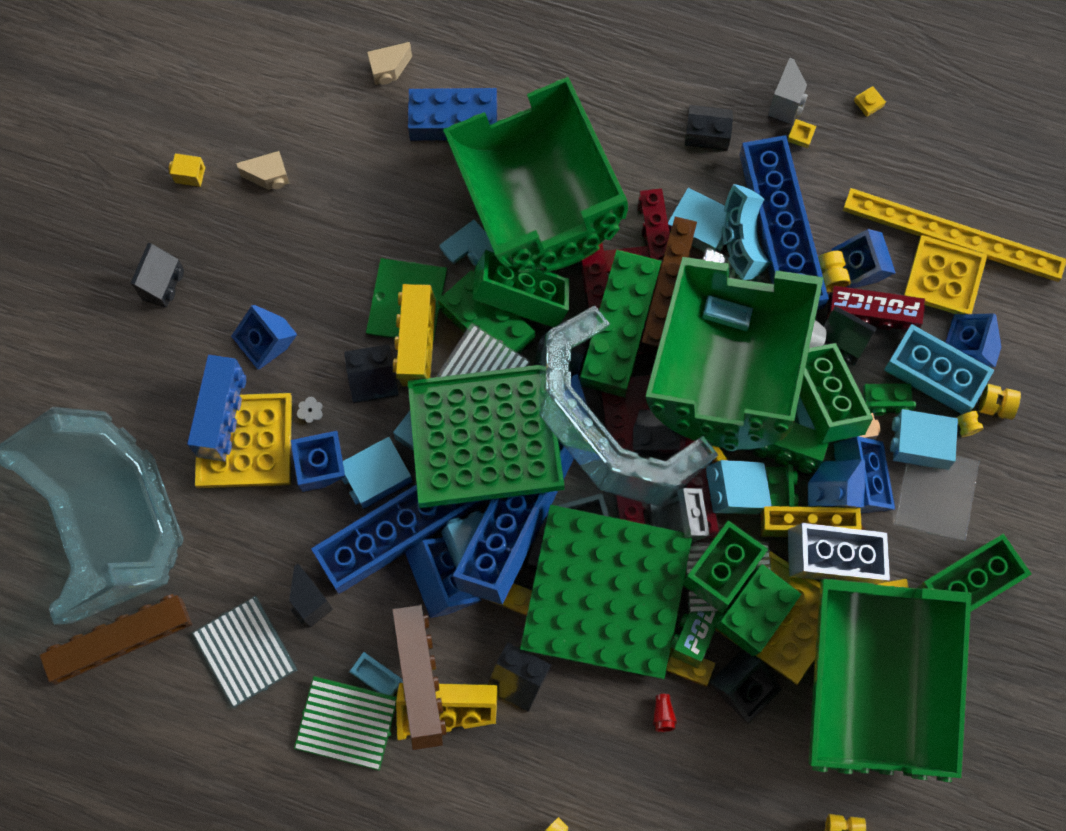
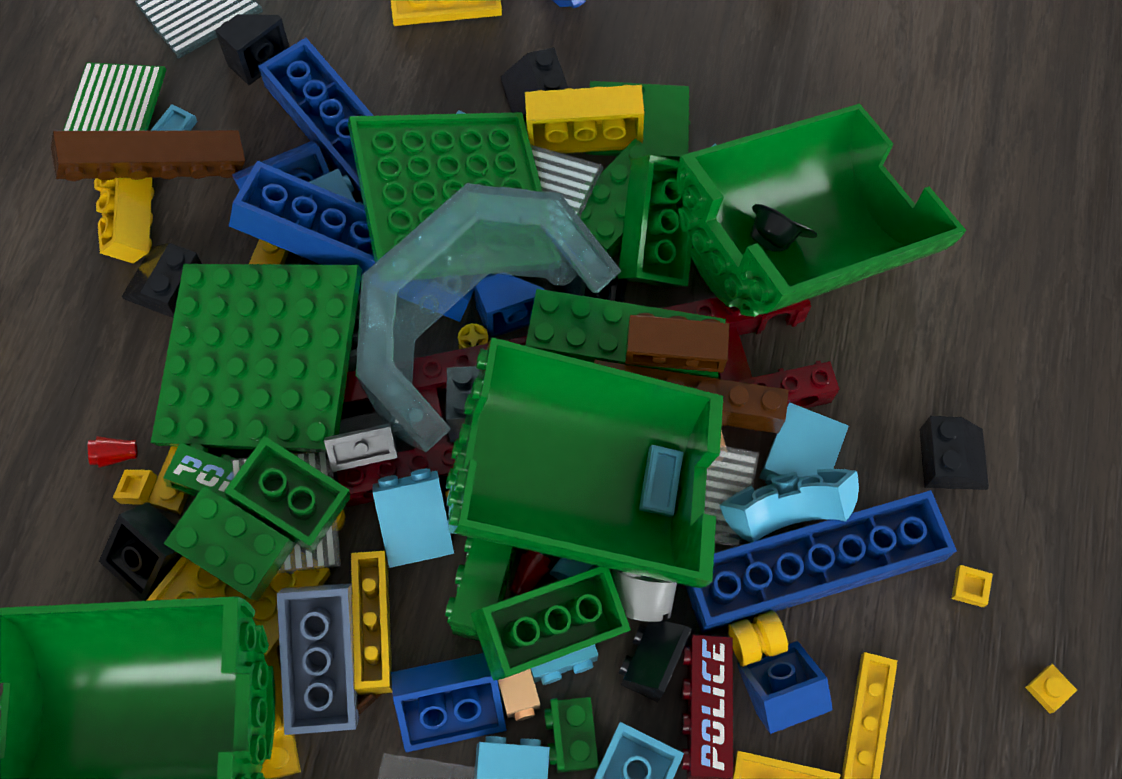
camera: 80 degrees right, 5 degrees down
(310, 404) = (485, 34): light grey plant -> none
(317, 460) = (416, 34): blue slope -> none
(375, 473) = (408, 93): medium azure brick -> none
(389, 62) = (952, 65): tan slope -> none
(441, 107) = (902, 117): blue brick -> none
(539, 207) = (775, 230): none -> black piece
(640, 281) = (677, 343): none -> reddish brown brick
(695, 694) = (135, 487): none -> yellow plate
(781, 486) = (422, 582): green bracket -> none
(789, 95) = (1027, 552): light grey slope -> none
(838, 485) = (422, 654): blue slope -> none

